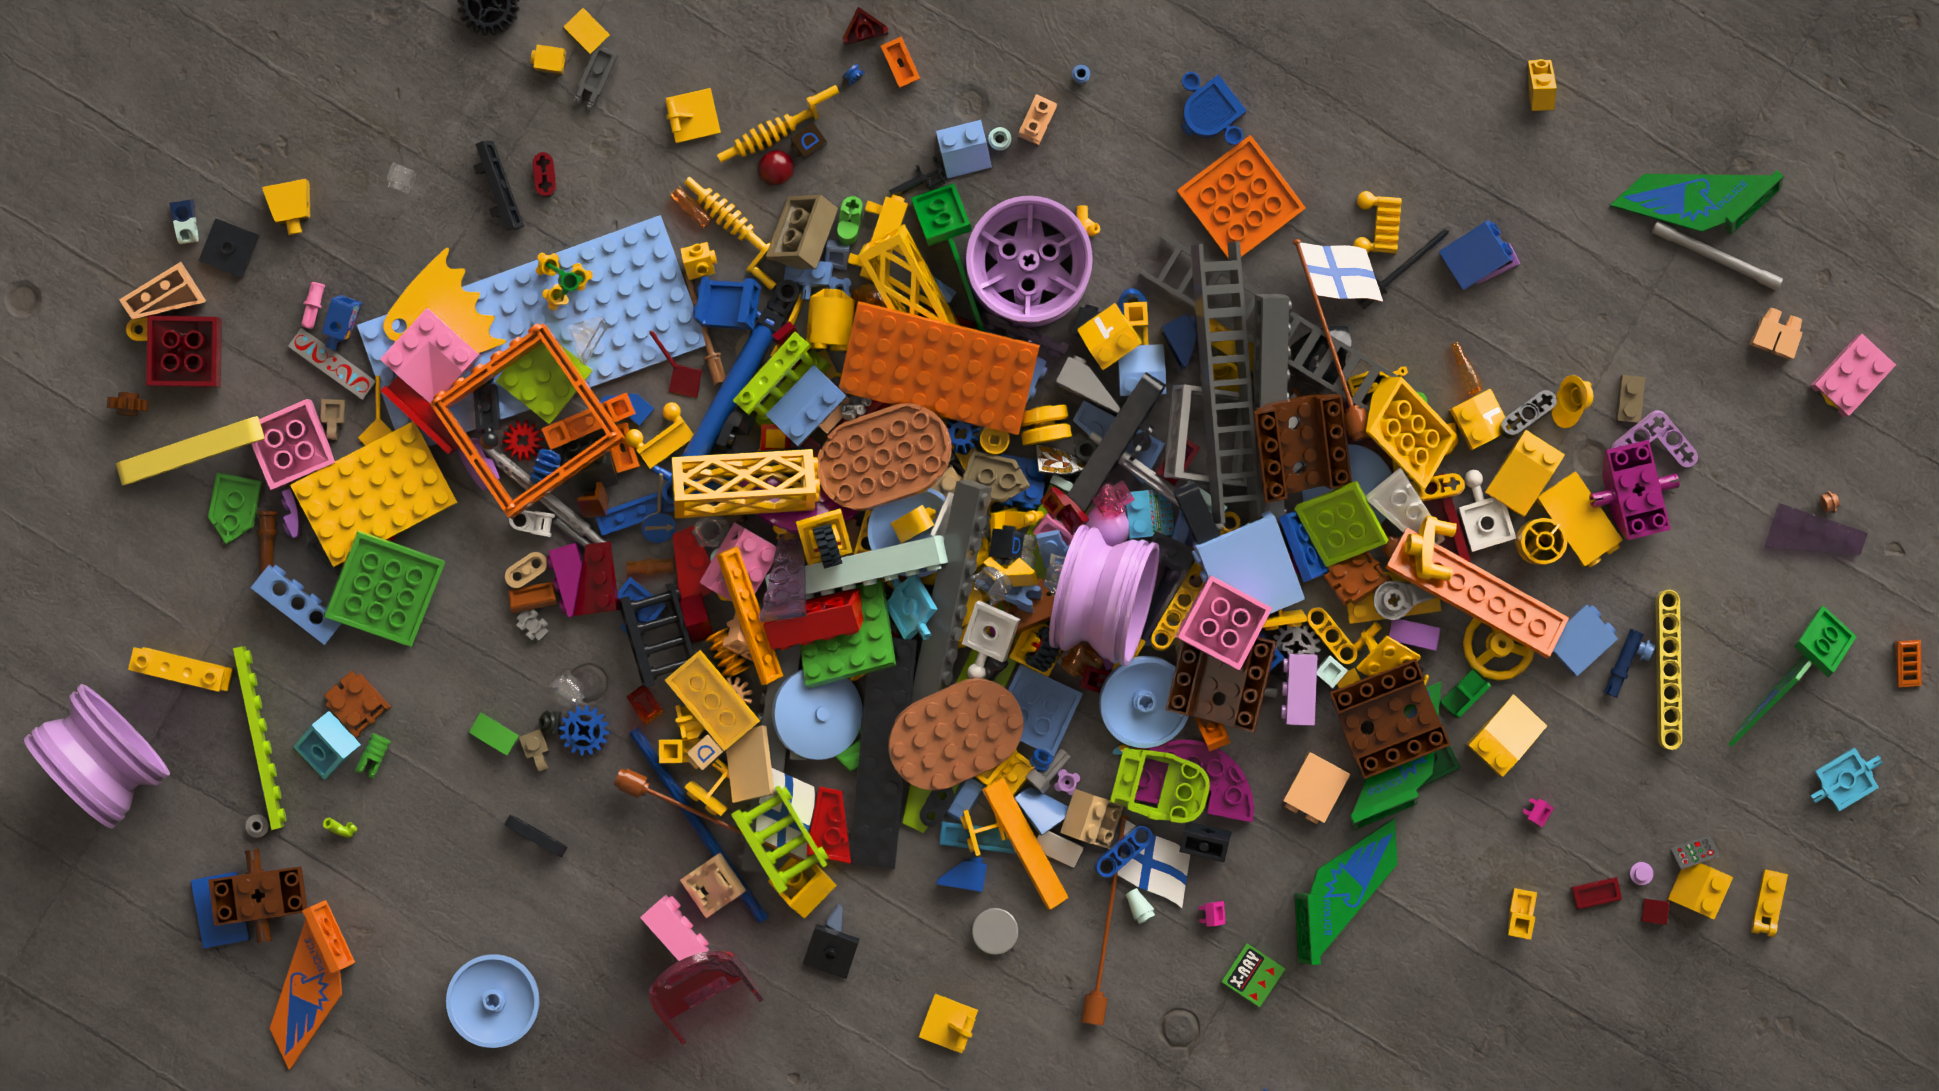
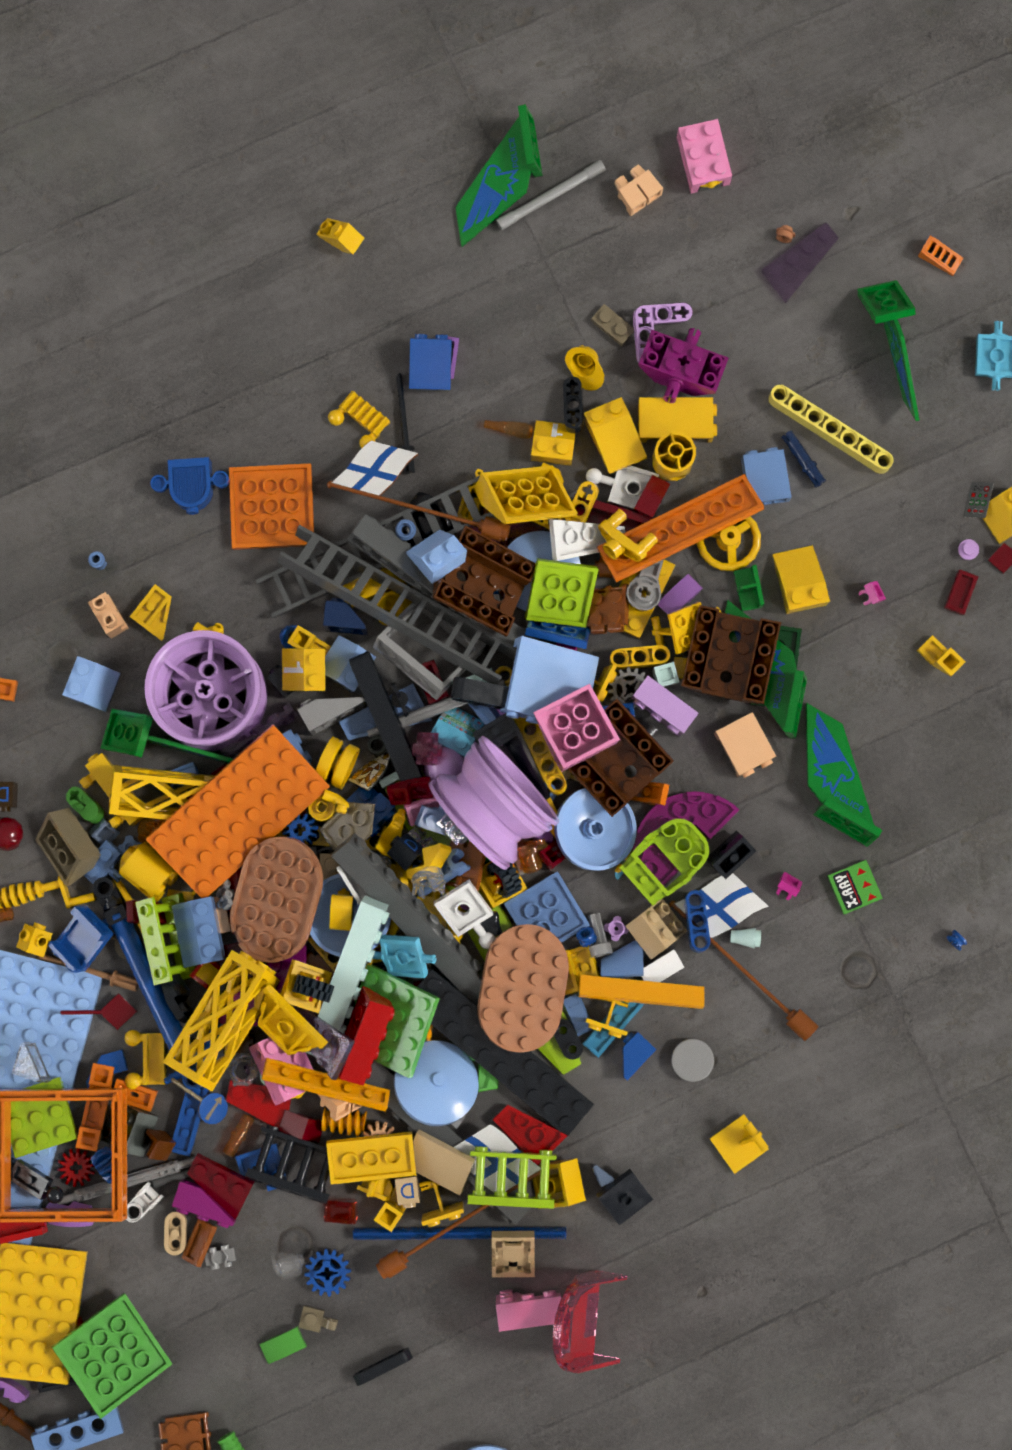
camera: 55 degrees left, 5 degrees down
(550, 722) = (303, 1294): pearl dark grey plate -> none
(778, 545) = (287, 1025): none -> yellow wing
(918, 180) = (92, 732): black piece -> none
(999, 131) = (97, 650): light aqua plate -> none
(1011, 449) = (335, 798): none -> yellow arm
(1069, 158) = (153, 612): none -> yellow wing
(1296, 388) = (438, 555): none -> light blue slope
(1301, 334) = (400, 525): none -> medium blue plate
(1489, 546) = (652, 496): none -> dark red slope
(1645, 650) = (805, 436): medium blue plate -> none

